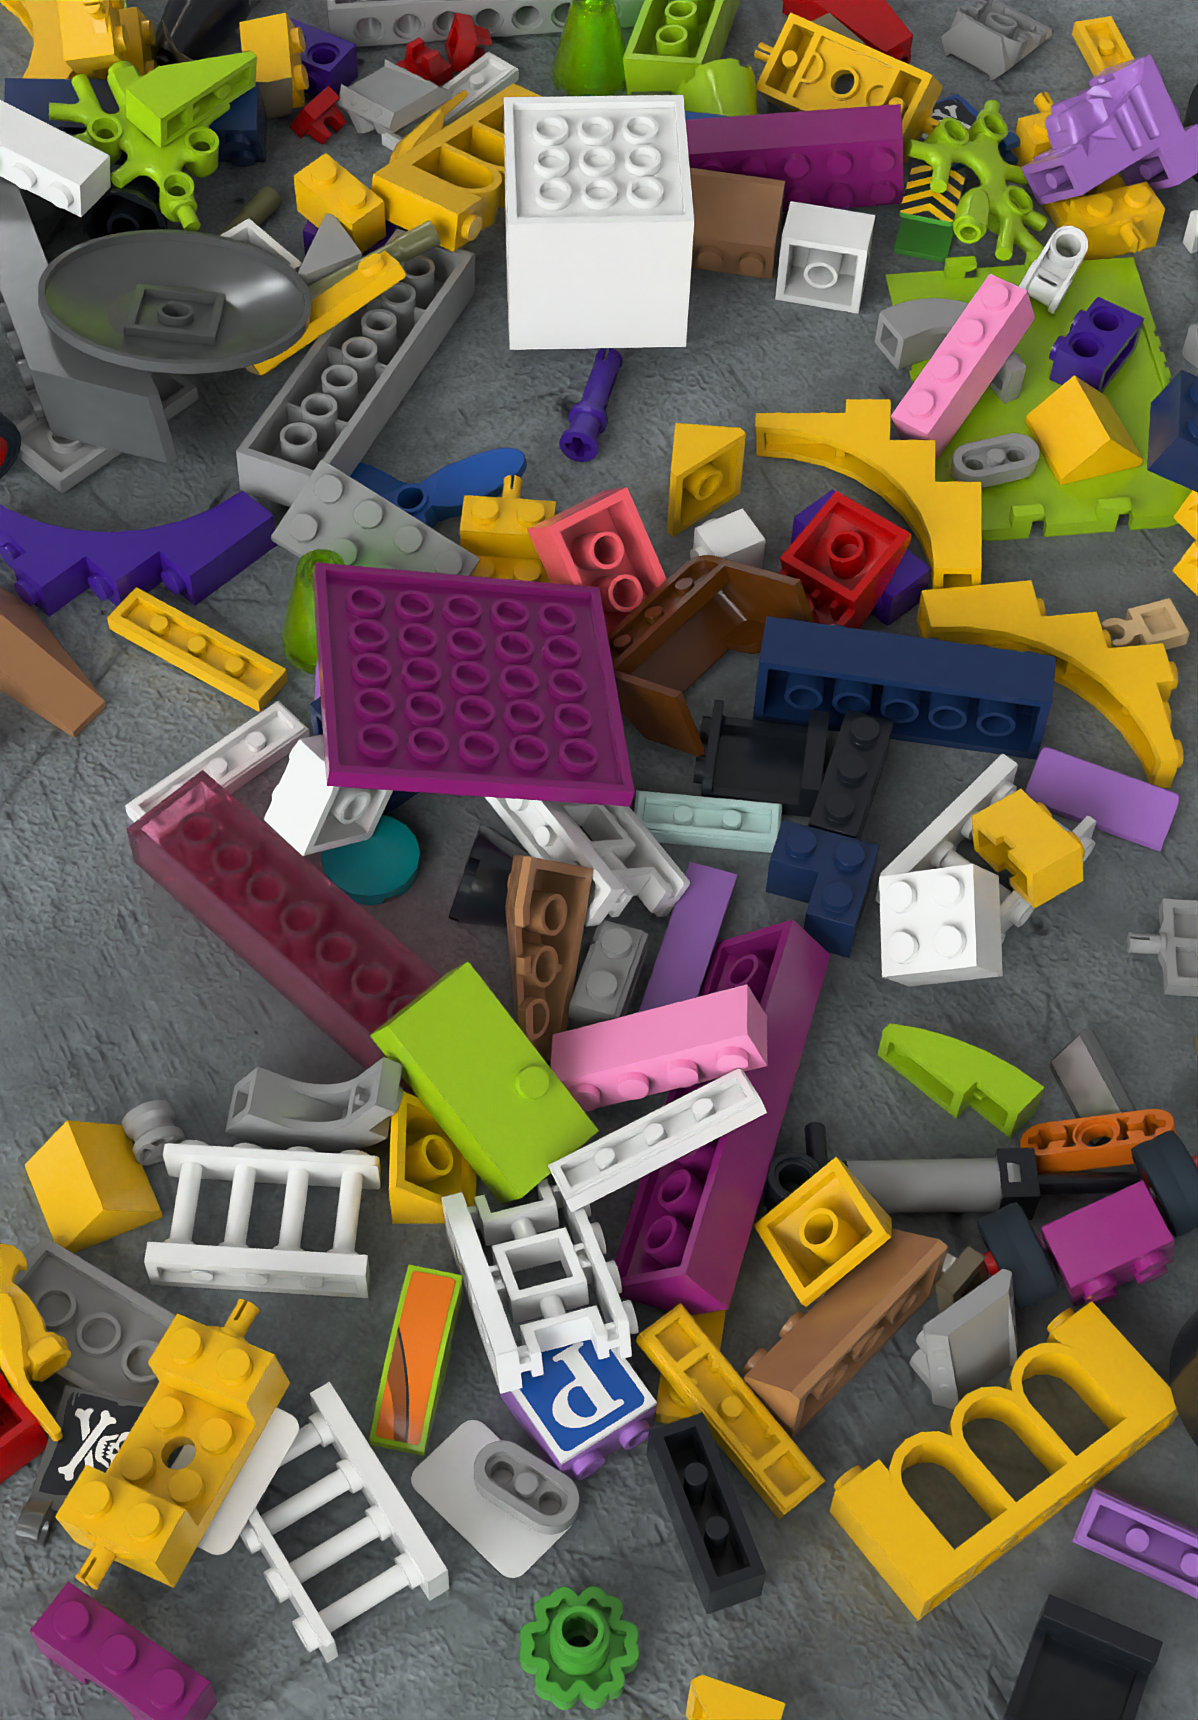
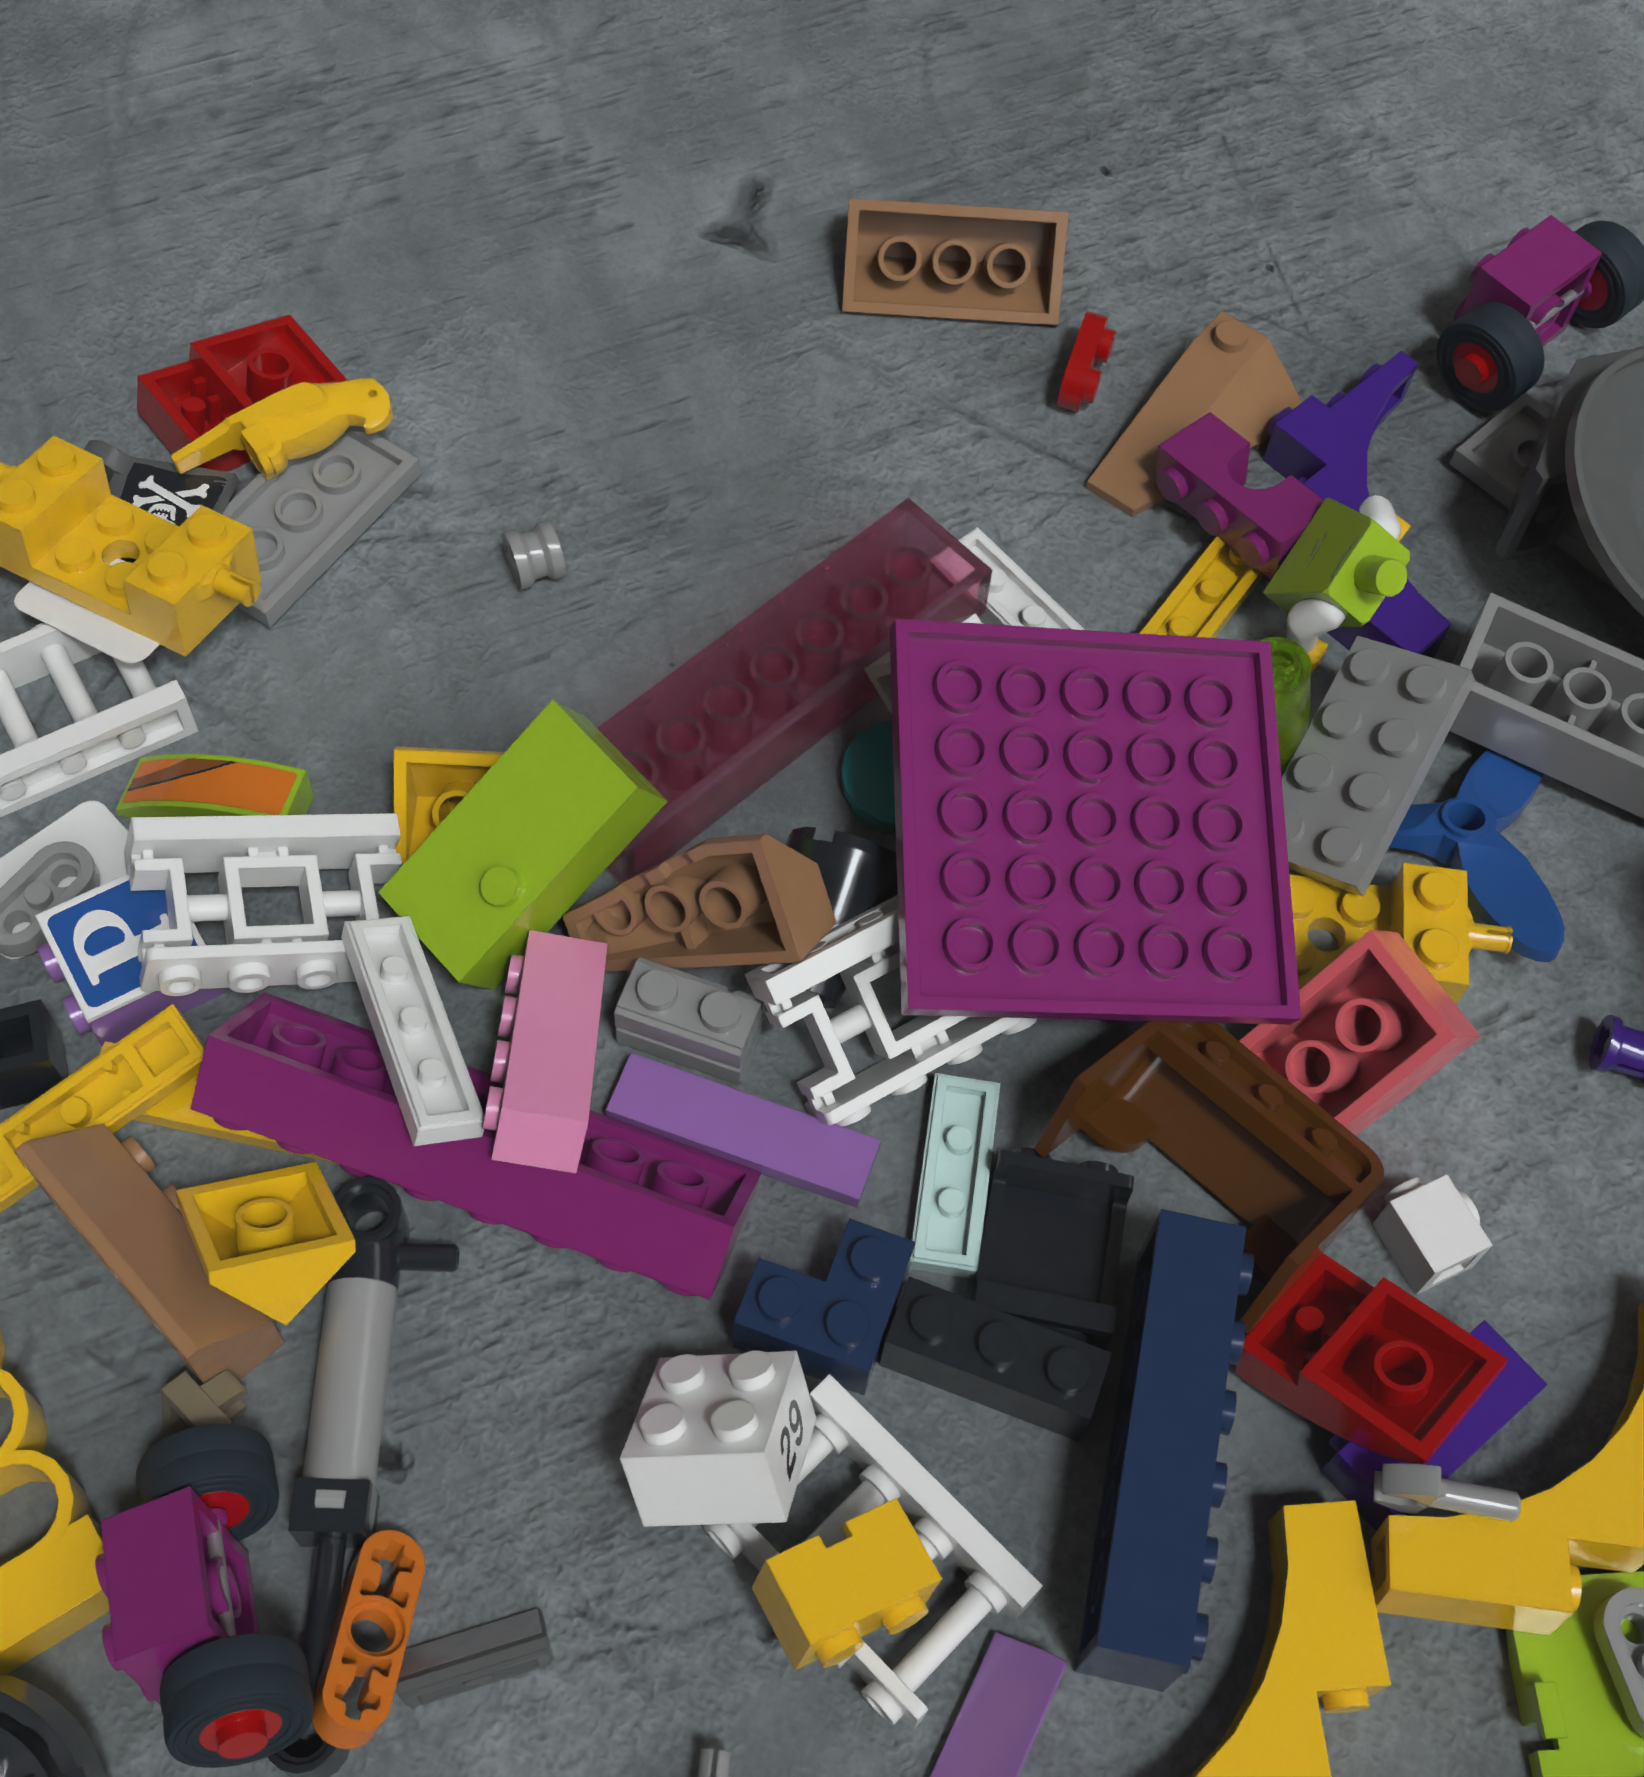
camera: 90 degrees right, 5 degrees up
(91, 1185) = (477, 504): yellow slope -> none
(96, 636) = (1206, 474): none -> magenta arch
(218, 536) = (1340, 571): none -> lime torso
(285, 1266) = (364, 624): white fence -> none
(316, 1116) = (540, 668): light grey arch -> none
(703, 472) = (1550, 1185): yellow slope -> none
(921, 536) = (1420, 1486): none -> light grey bar
(961, 1076) = (508, 1465): lime slope -> none
(968, 1341) = (100, 1409): light grey slope -> none

